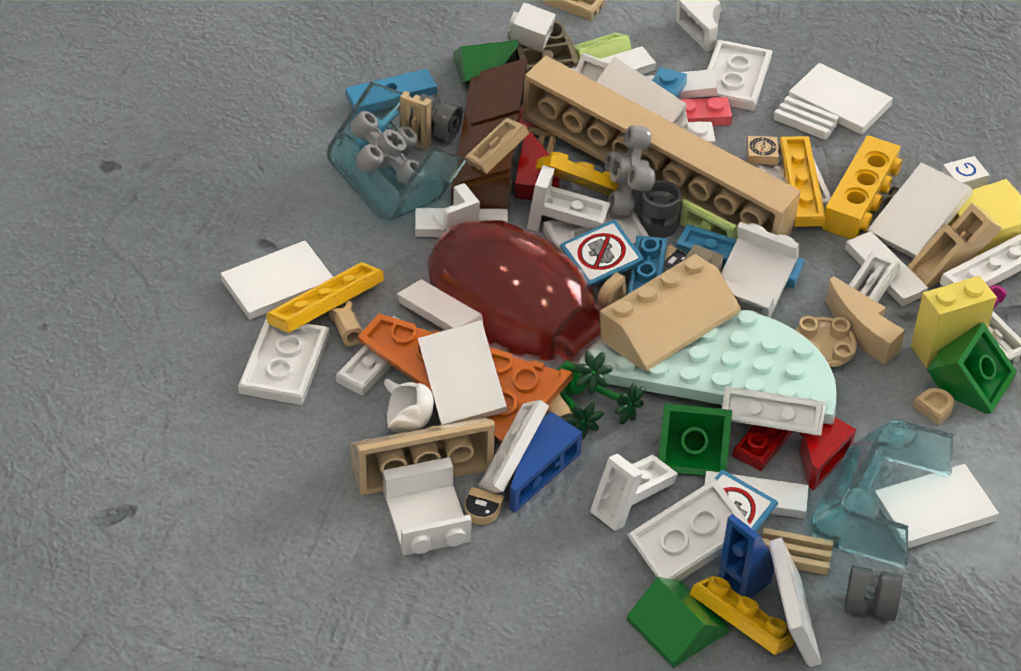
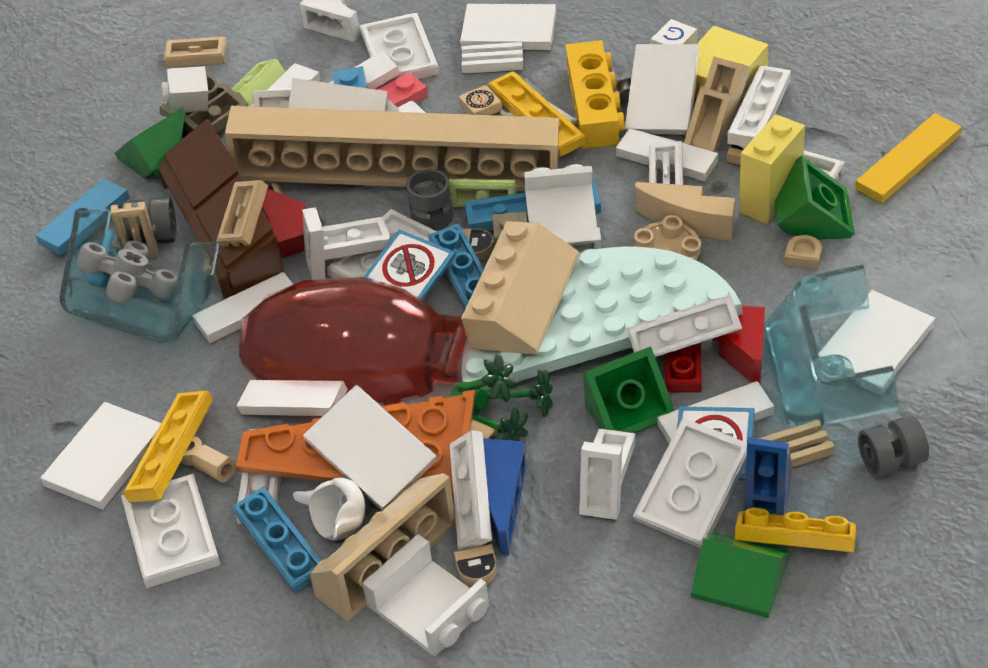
camera: 25 degrees left, 0 degrees up
(352, 405) = (289, 553): none -> dark azure tile
(464, 208) = (245, 292): white panel -> none
(578, 173) = (340, 202): yellow tile -> none
(612, 290) = (445, 297): tan tile -> none
(629, 170) = (385, 175): light grey gear -> none
(794, 602) = (840, 493): white tile -> none

